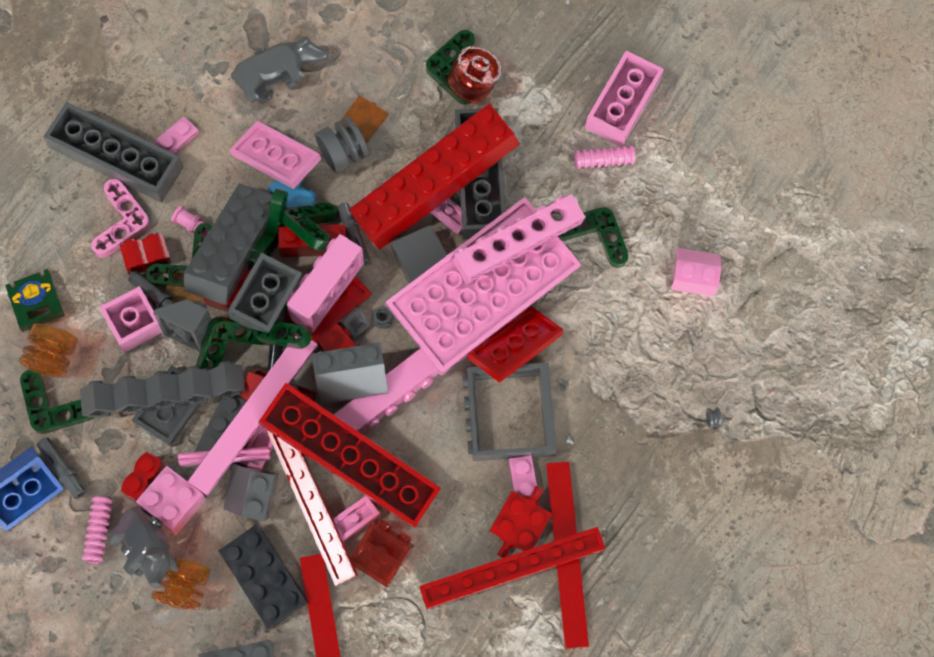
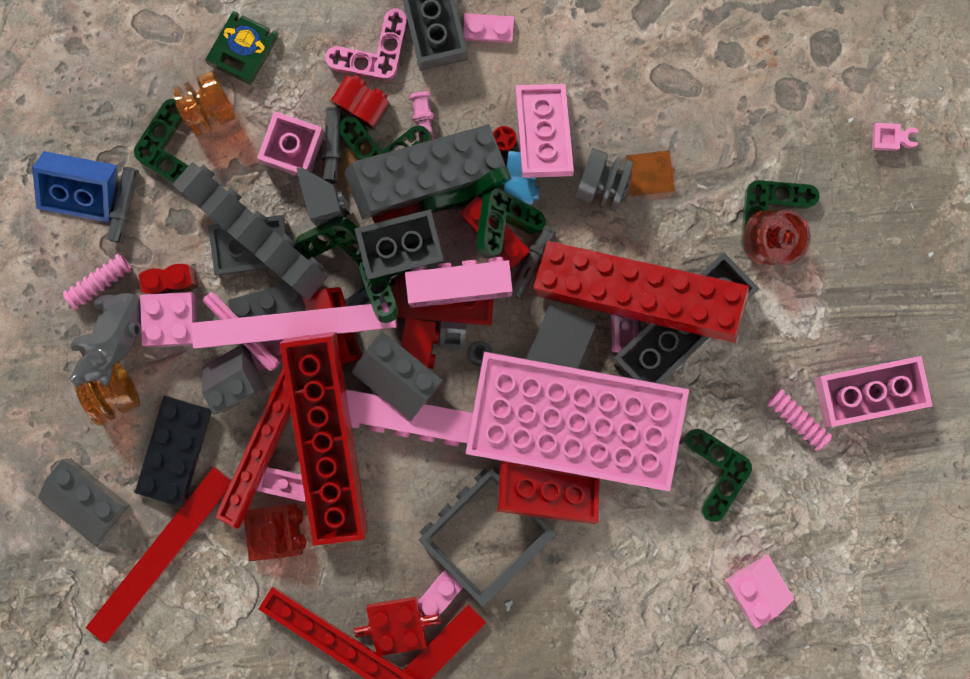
camera: 55 degrees right, 15 degrees up
(257, 181) = (503, 134): none -> red wheel
(274, 65) = (628, 51): dark grey animal -> none
(472, 269) = (703, 448): bright pink brick -> none

